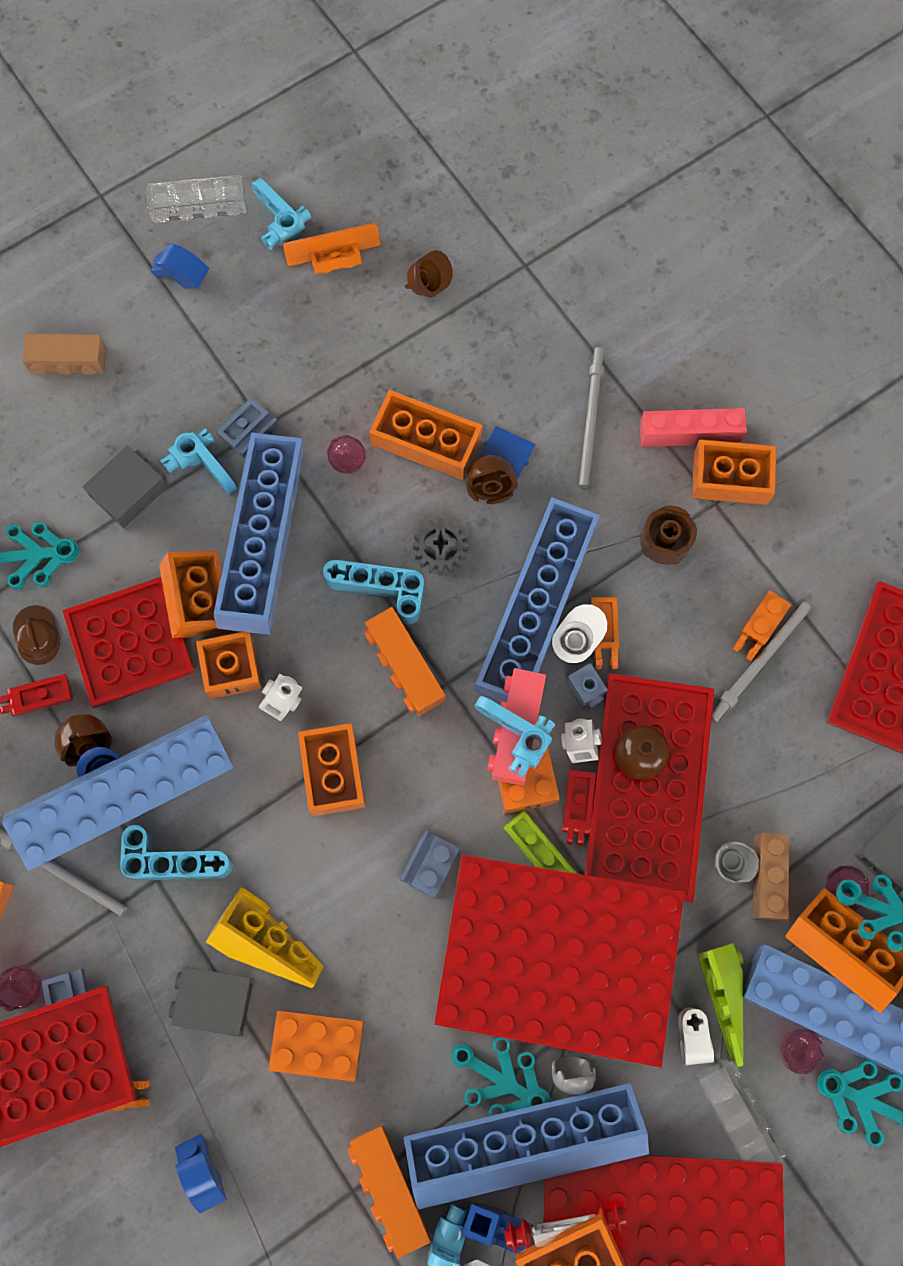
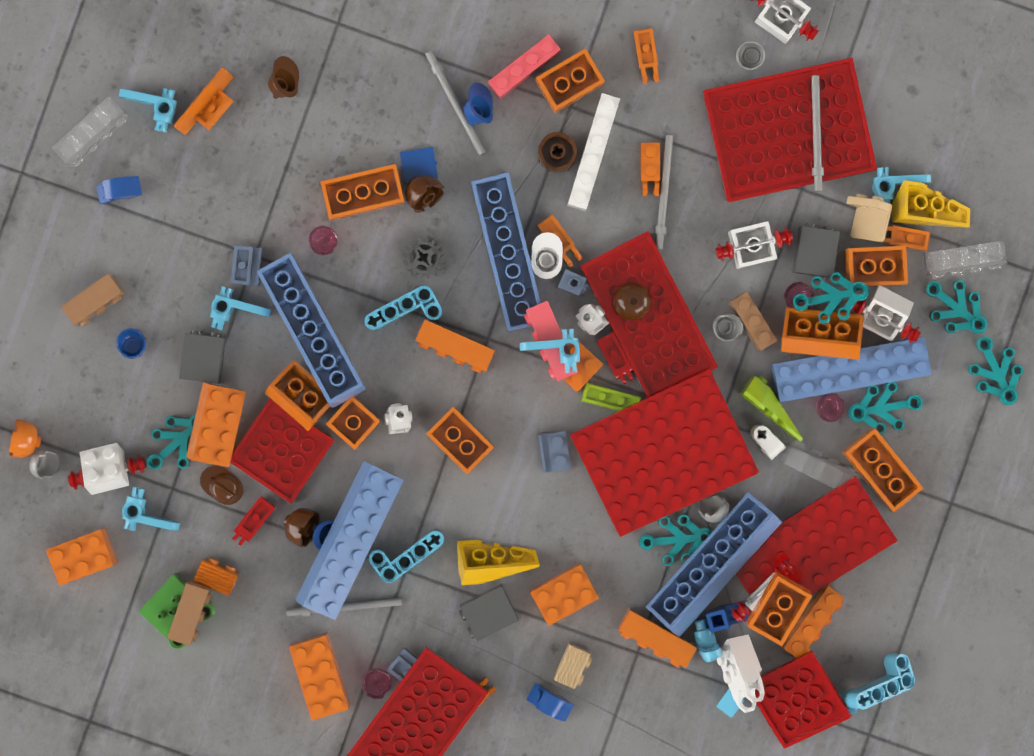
camera: 30 degrees left, 15 degrees up
(65, 419) = (131, 343): none -> blue hair
(80, 561) = (216, 424): none -> orange brick
(260, 1146) = (572, 665): none -> tan brick
(615, 432) = (479, 106): none -> blue piece
(708, 563) = (593, 152): none -> white brick
(821, 1182) = (882, 469): none -> orange brick
(830, 787) = (753, 244): none -> white brick
(838, 503) = (646, 53): none -> orange hinge

